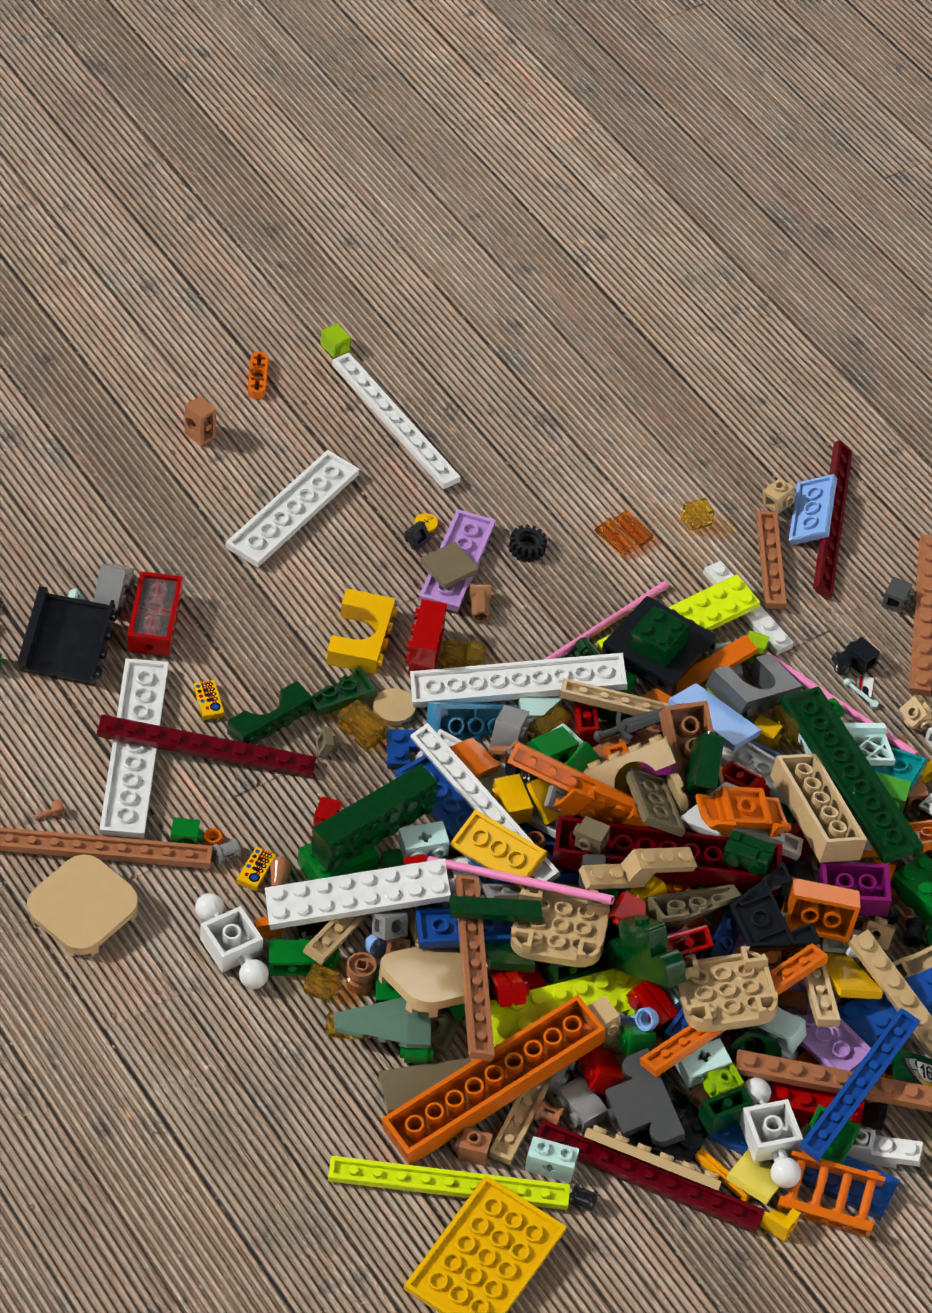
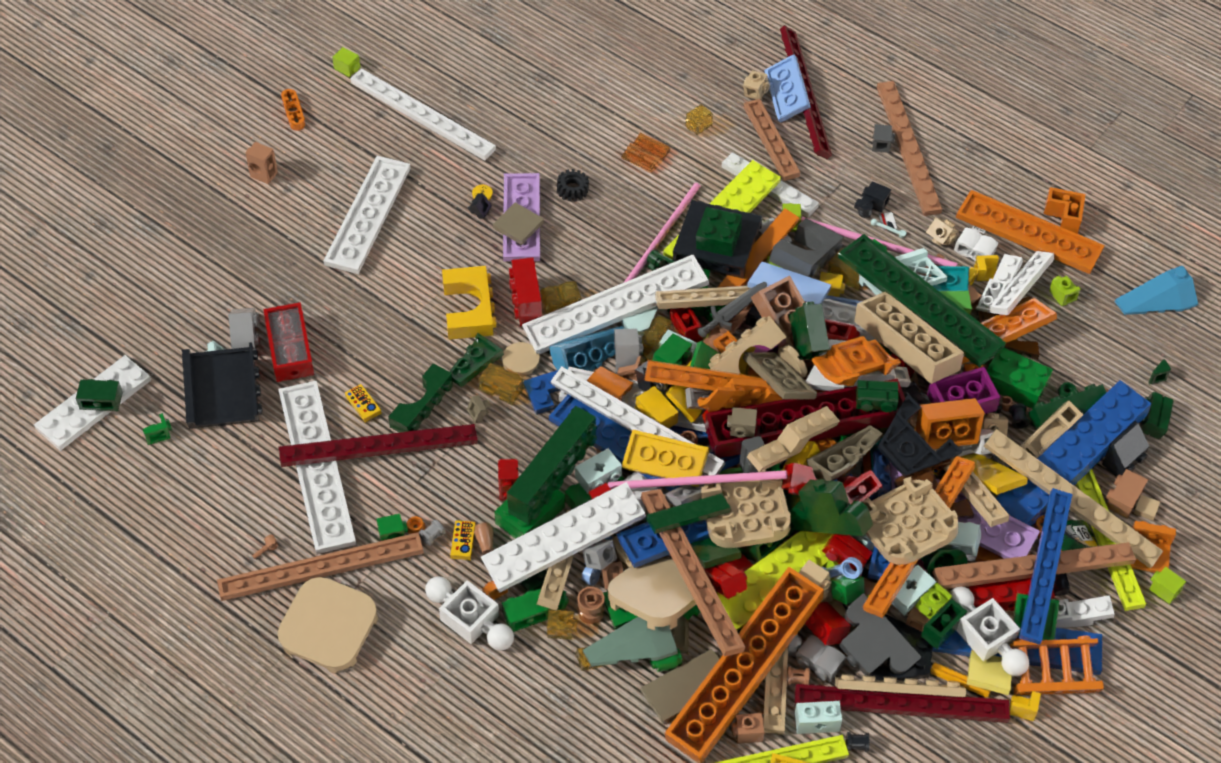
camera: 15 degrees left, 5 degrees up
(480, 602) = (554, 244): medium nougat piece -> none

